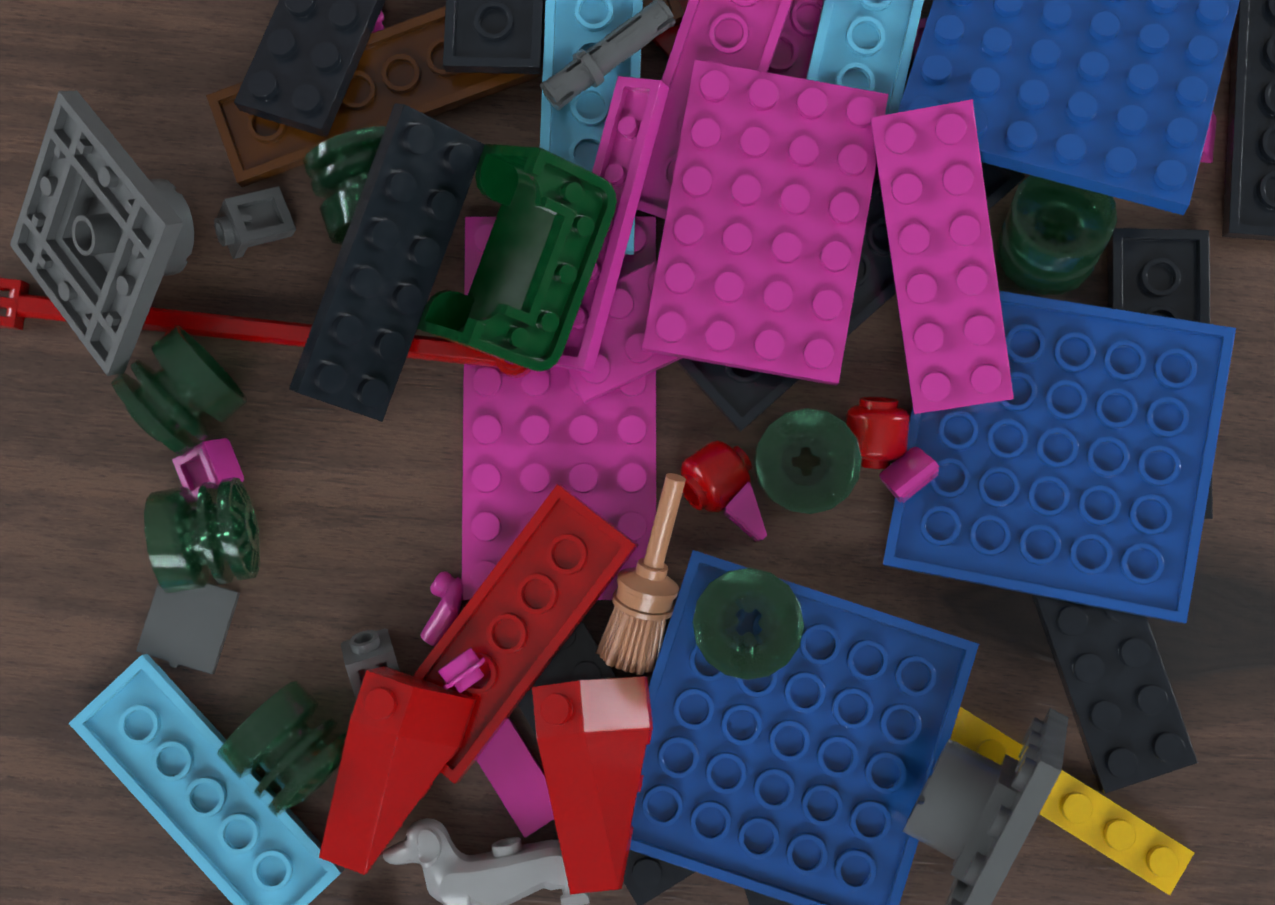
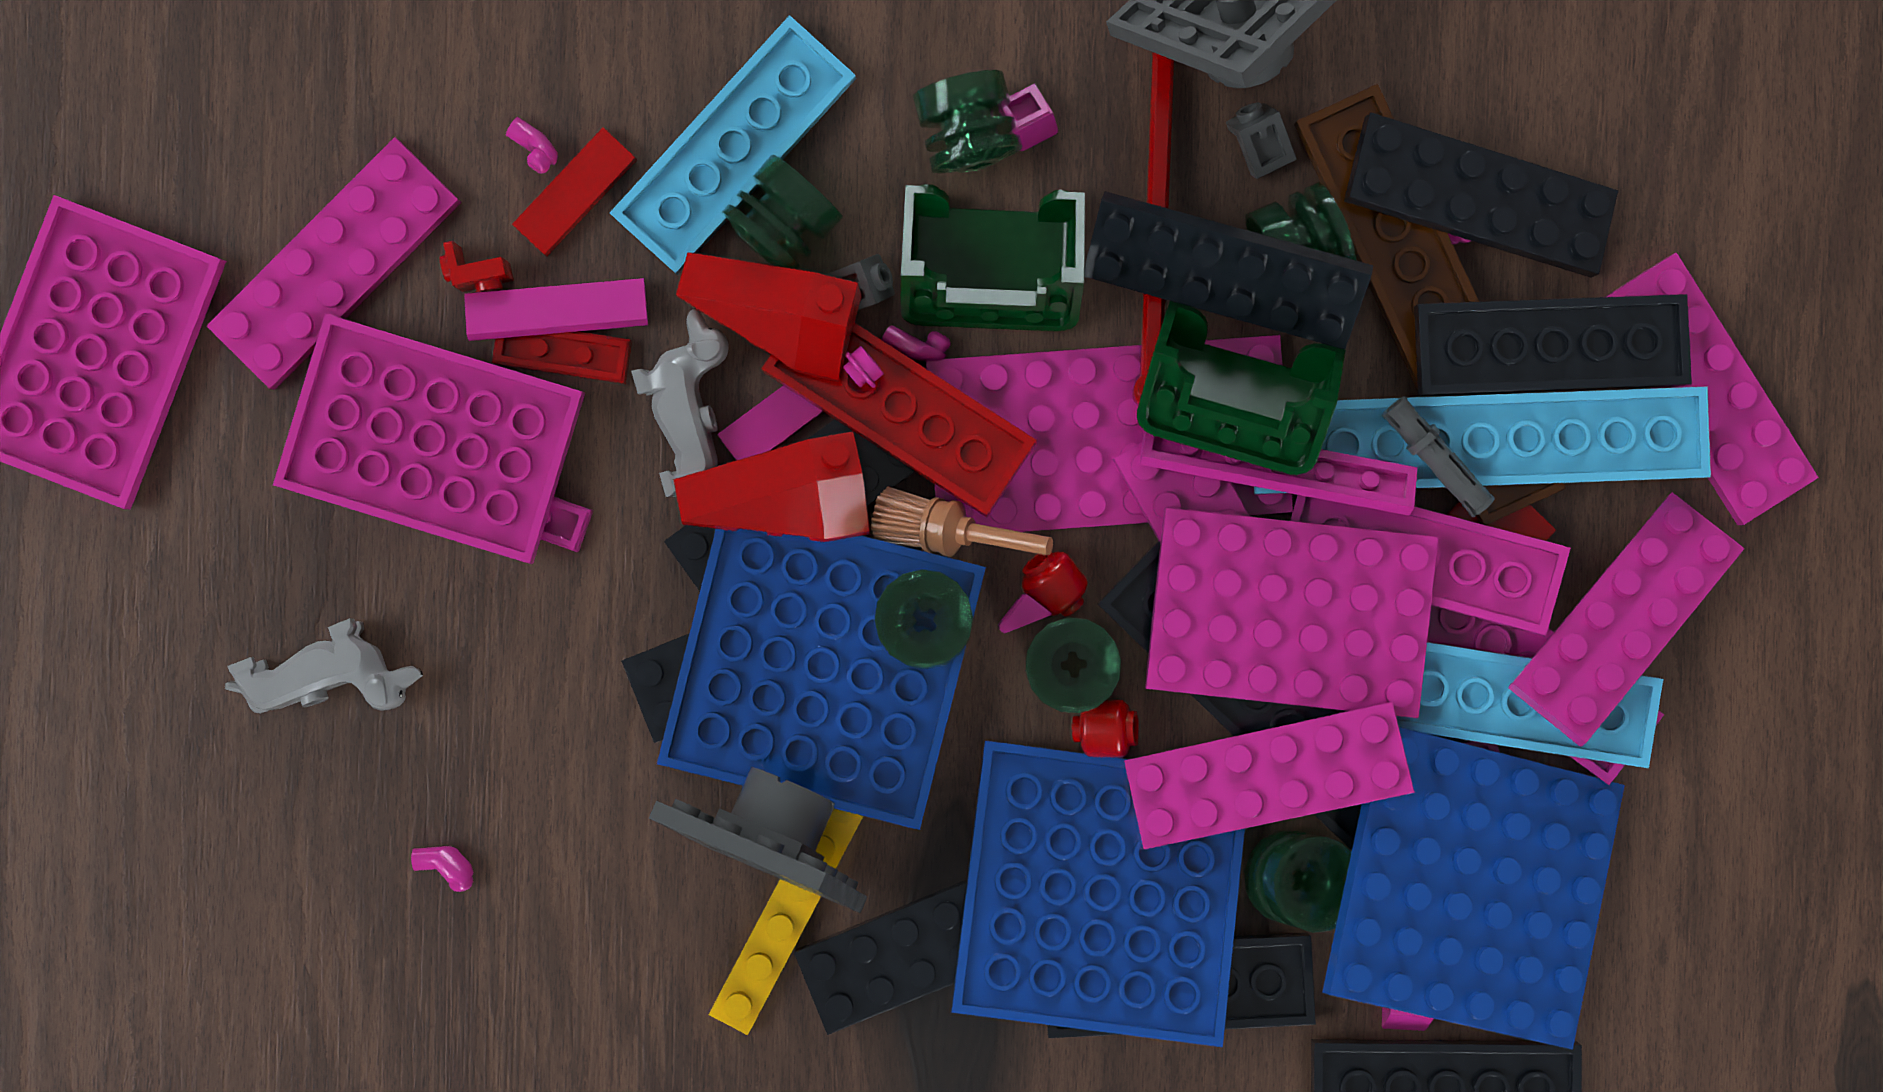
camera: 85 degrees right, 5 degrees up
(178, 391) = (1097, 87): clear green wheel -> none
(189, 626) = (884, 113): dark grey piece -> none
(362, 519) = (992, 263): none -> dark green windscreen
(909, 474) = (1068, 759): dark pink slope -> none

